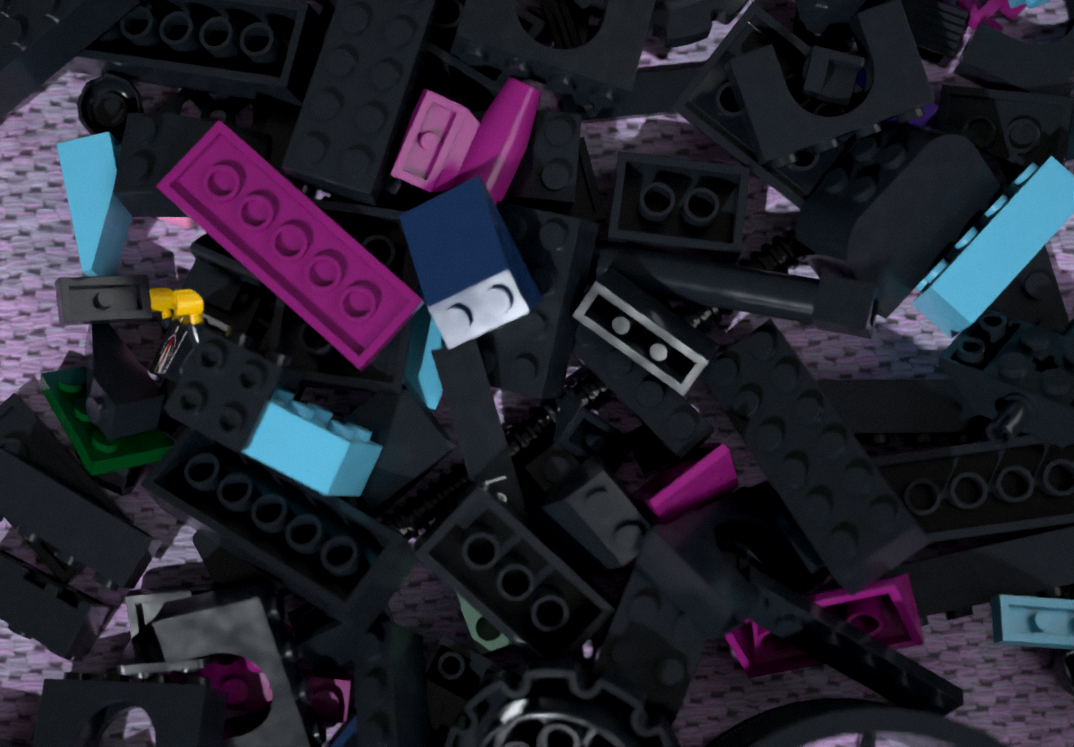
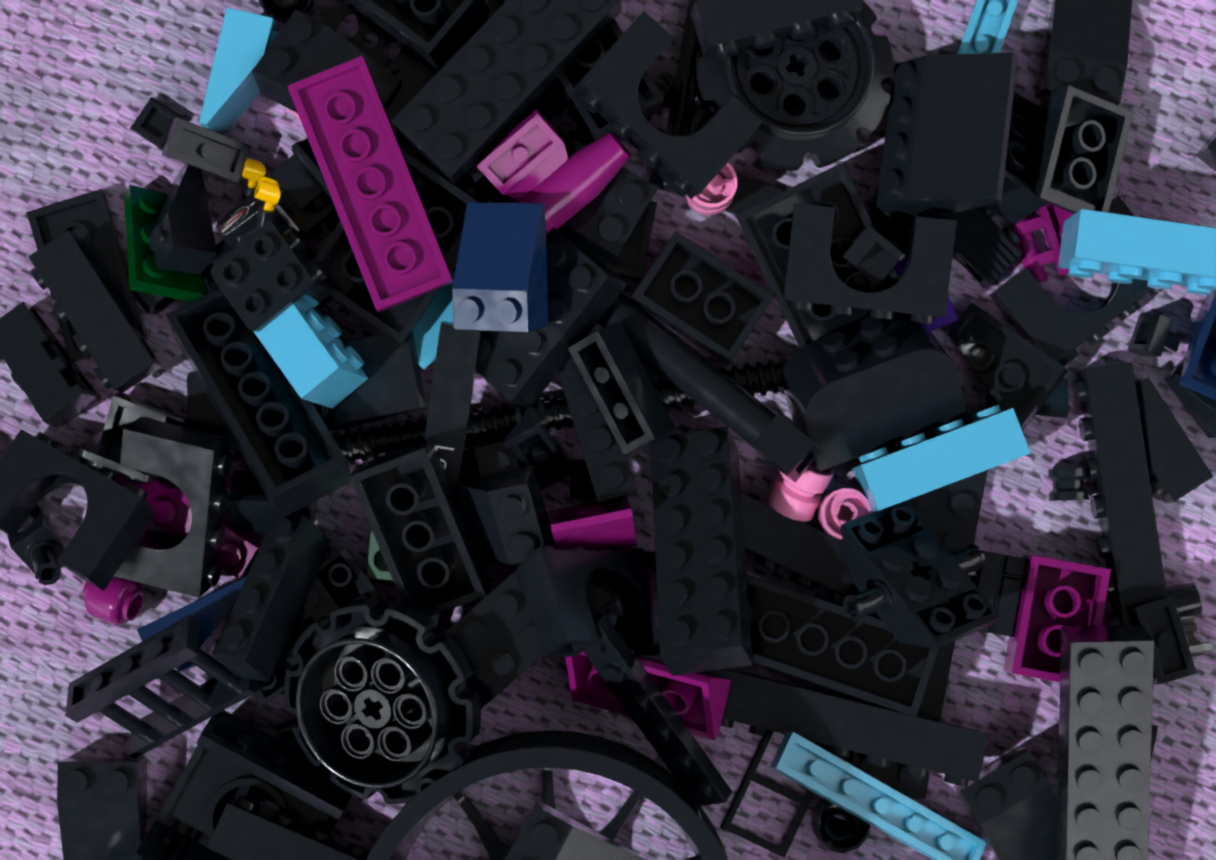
camera: 25 degrees right, 5 degrees up
(37, 302) = (155, 122): none -> black tile
(641, 101) = (717, 194): none -> bright pink wheel
(876, 357) = (799, 499): none -> bright pink wheel
(919, 350) = (840, 507): none -> bright pink wheel
(969, 665) = (749, 776): none -> black window

